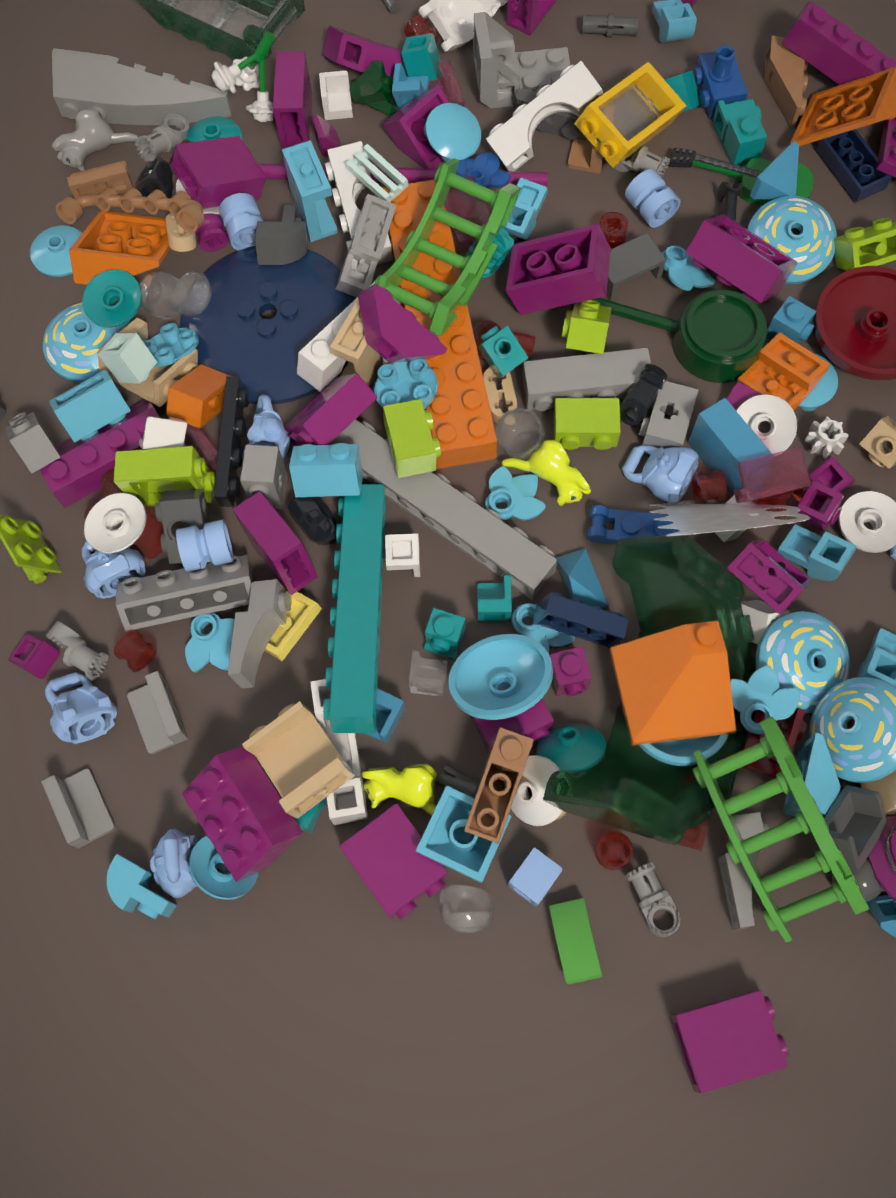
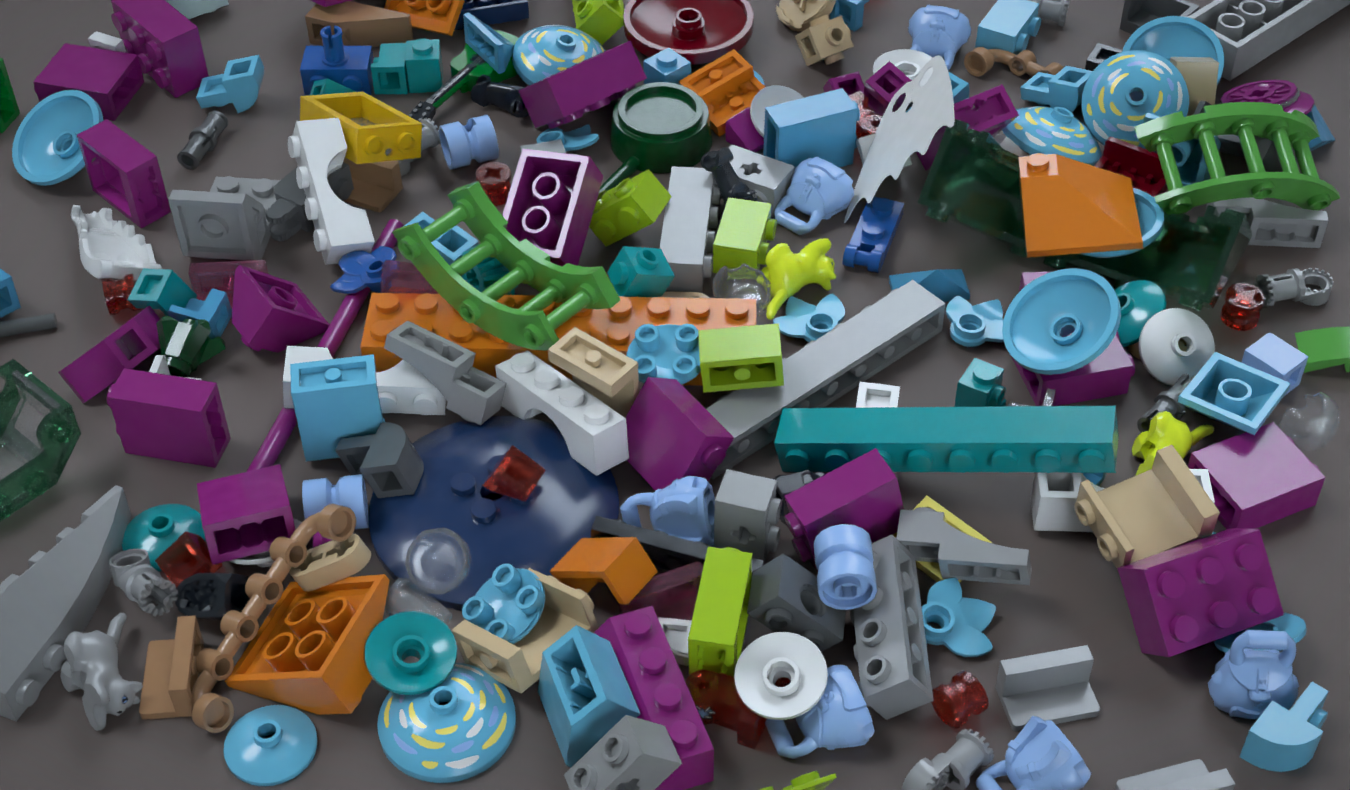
camera: 80 degrees left, 25 degrees down
(127, 358) = (528, 624): light aqua brick -> none
(163, 433) = (671, 592): white panel -> none
(249, 75) = (99, 469): white plant -> none
(272, 318) = (514, 475): none -> clear red slope
(325, 135) = (238, 410): magenta slope -> none
(326, 470) = (762, 437): medium azure brick -> none
(362, 158) = (346, 331): light aqua tile -> none
(394, 330) = (607, 319): magenta slope -> none
(453, 131) = (301, 278): medium azure dish -> none
(494, 601) = (942, 348): teal panel -> none
(498, 785) = (1173, 346): medium nougat slope -> none
(580, 620) = (986, 276): dark blue piece -> none
(709, 487) = (846, 159): clear red wheel -> none
(763, 694) = (1098, 153): medium azure plate -> none
(772, 475) = (864, 96): clear pink panel -> none
(826, 437) = (806, 78): white gear -> none

